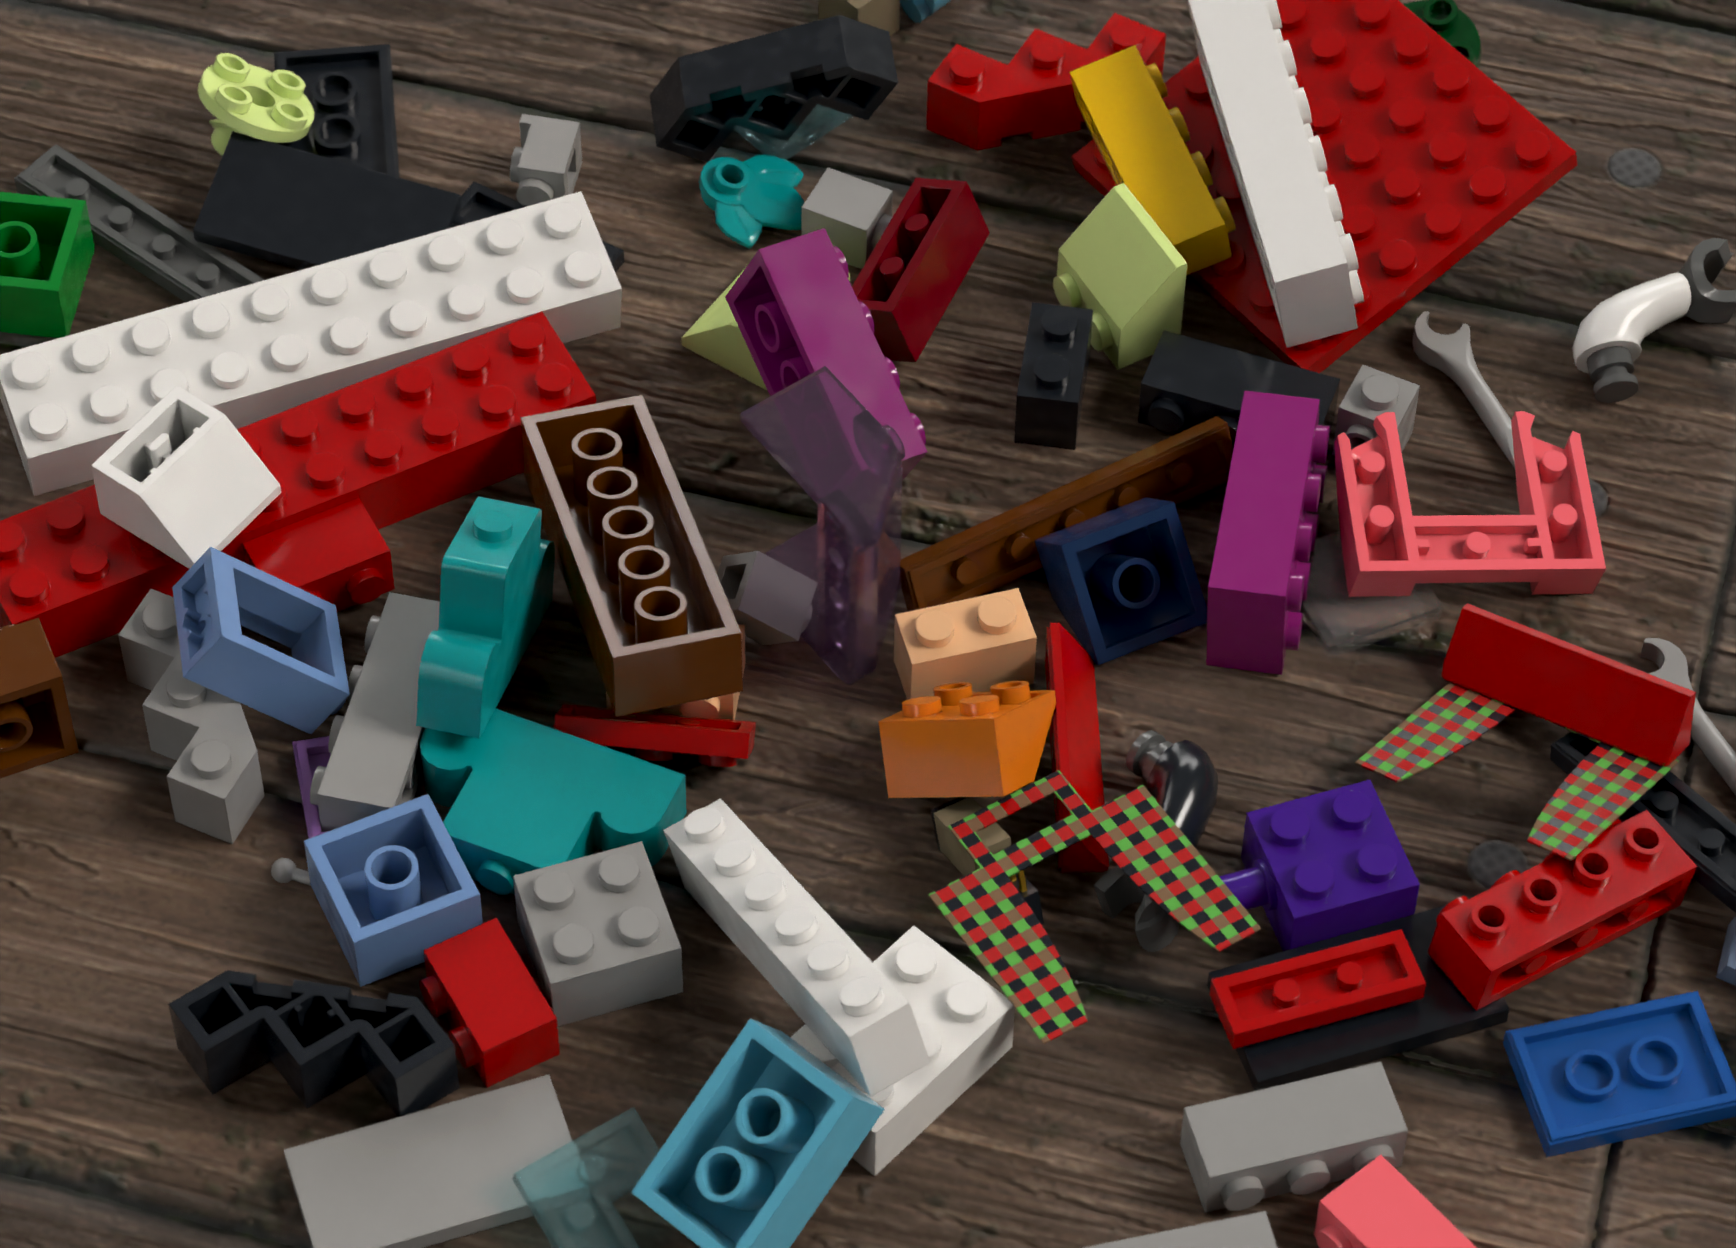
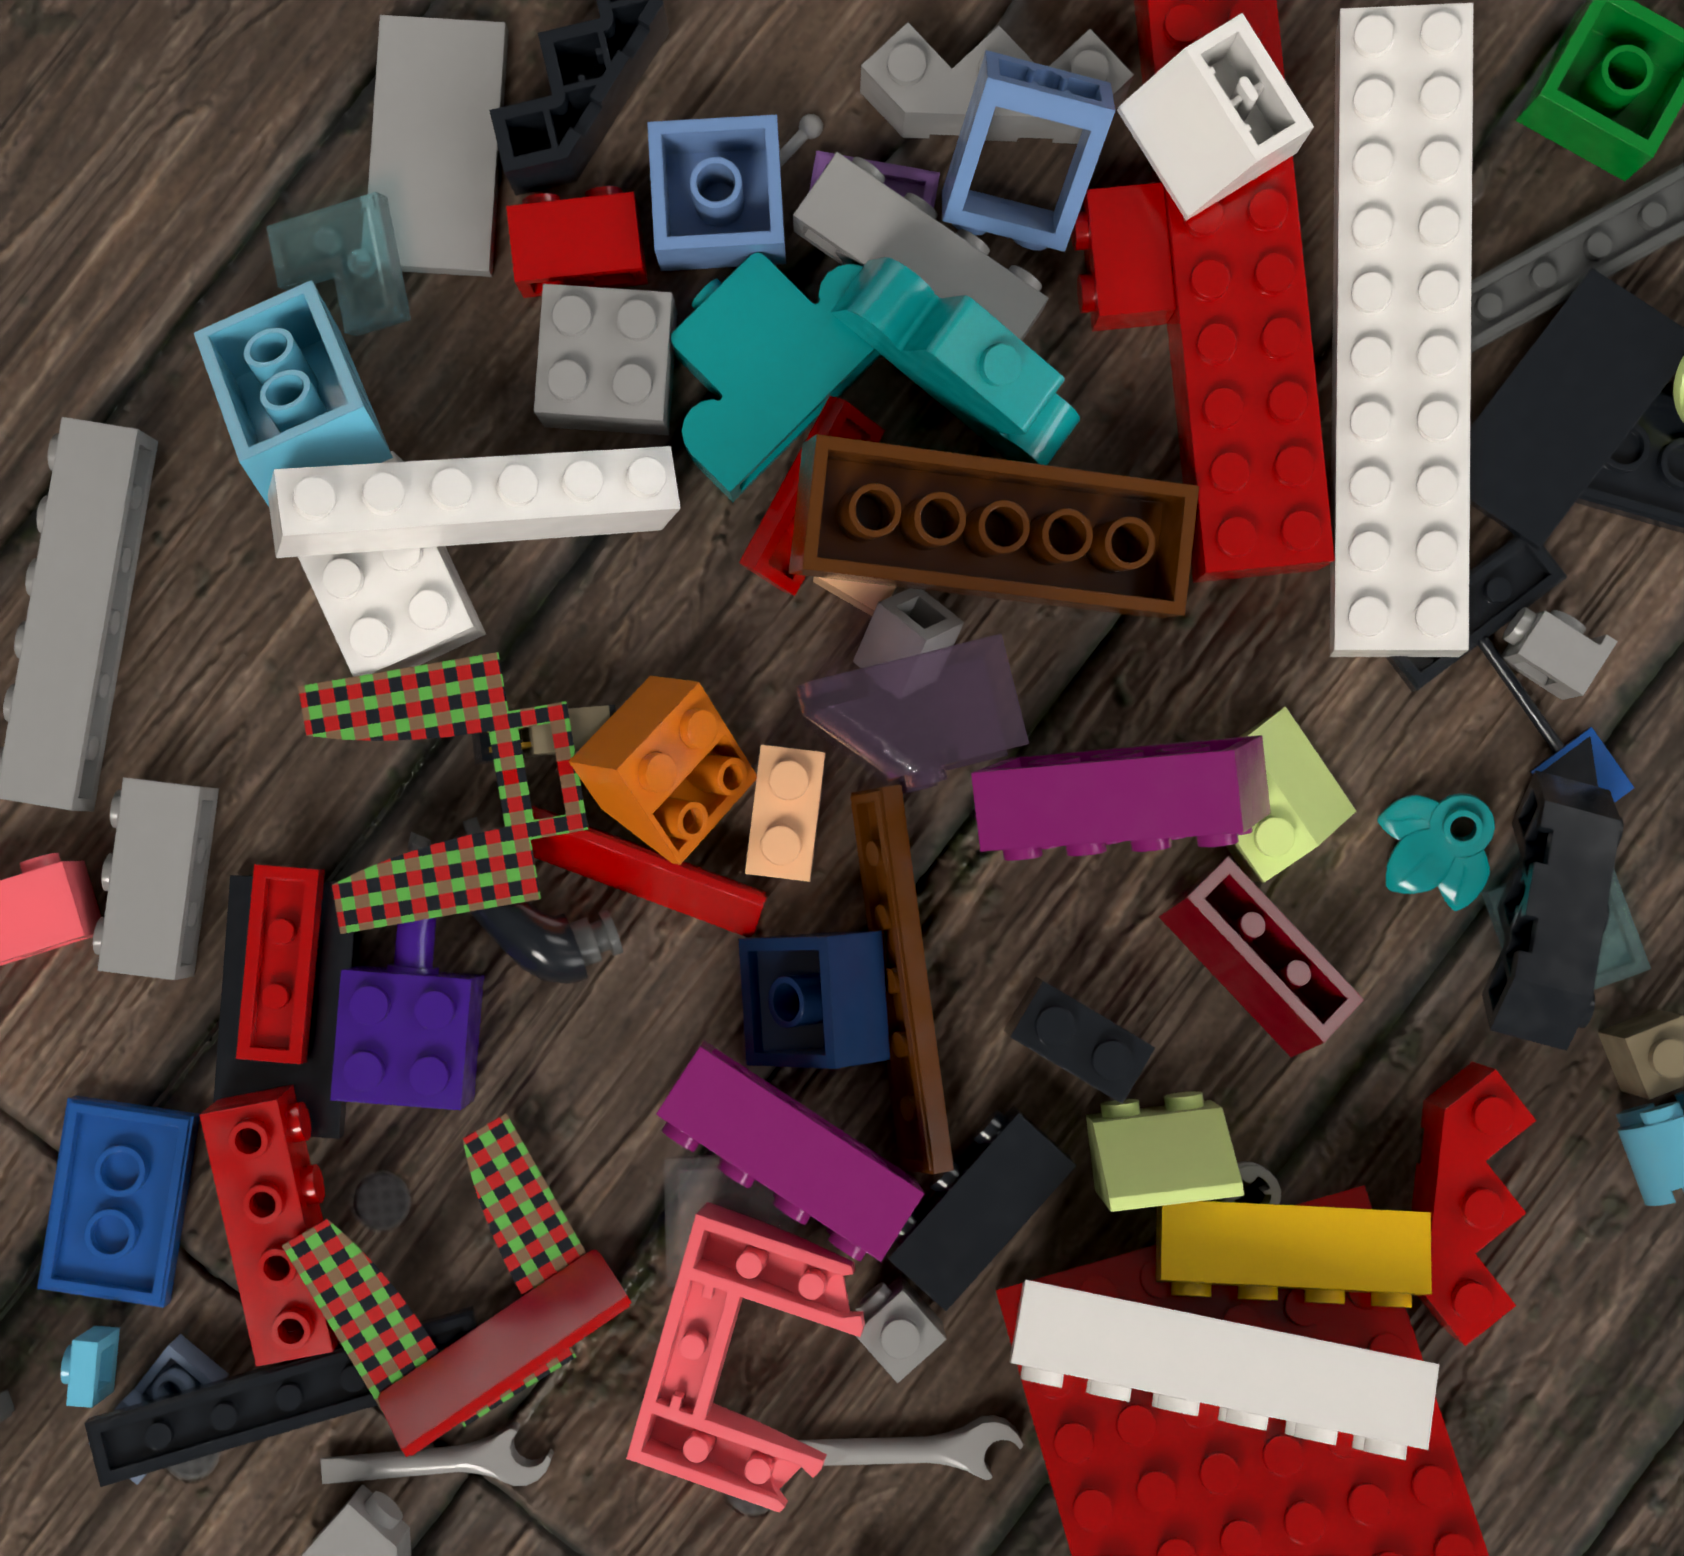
camera: 110 degrees right, 35 degrees up
(633, 131) = (1582, 758): none -> piece
(850, 212) = (1363, 924): light grey brick -> none

